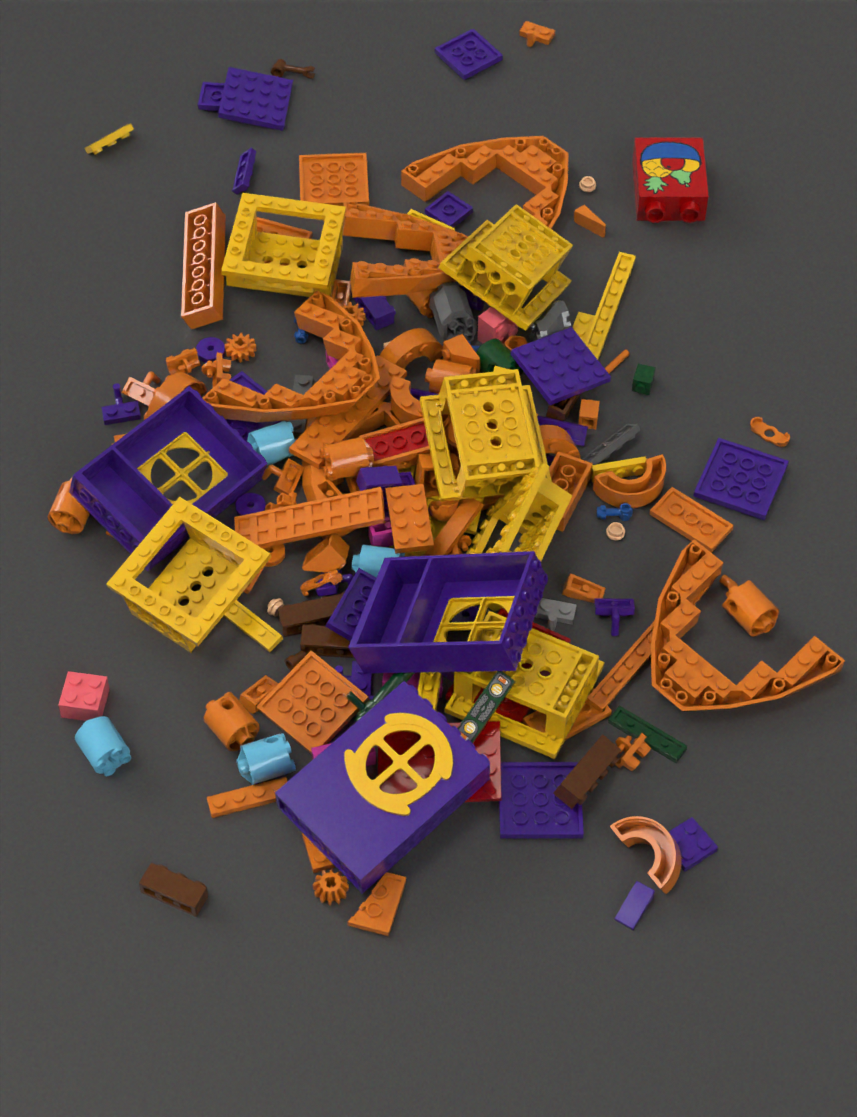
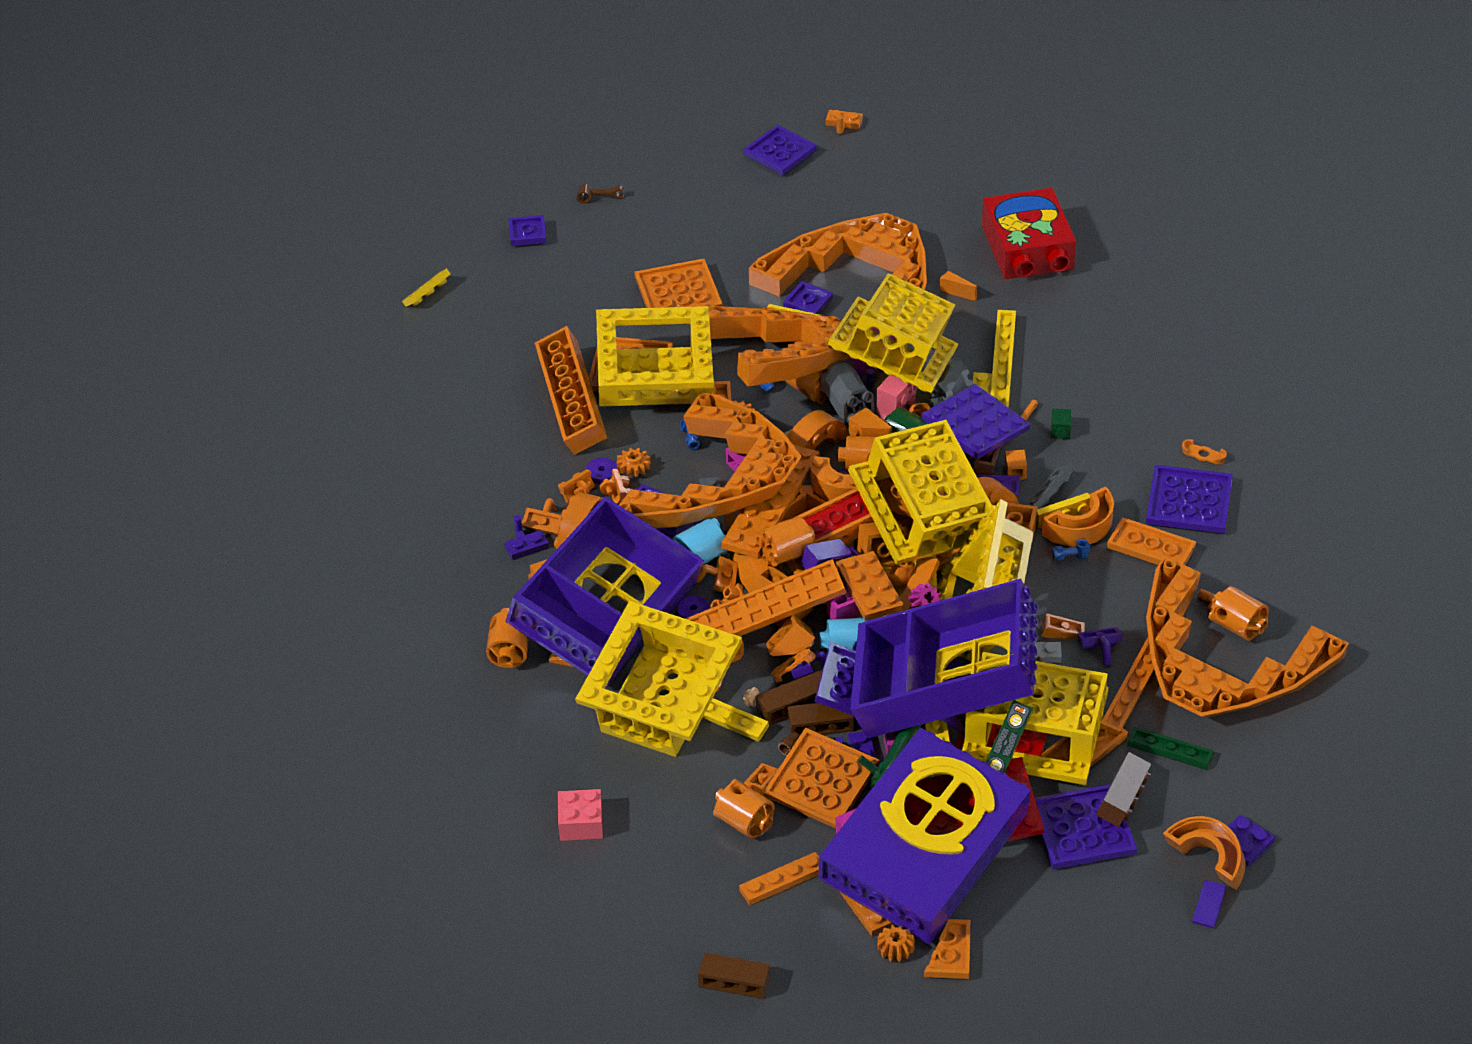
camera: 10 degrees left, 10 degrees down
(102, 745) = (616, 854): medium azure cylinder -> none
(244, 171) = (581, 296): dark purple plate -> none
(255, 98) = (570, 225): dark purple plate -> none
(265, 759) = (791, 836): medium azure cylinder -> none
(377, 310) = (761, 399): dark purple brick -> none
(463, 538) = (924, 595): none -> dark pink gear
(587, 184) = (943, 252): light nougat plate -> none
(615, 531) = (1078, 568): light nougat plate -> none
(638, 746) = (1157, 762): orange hips -> none

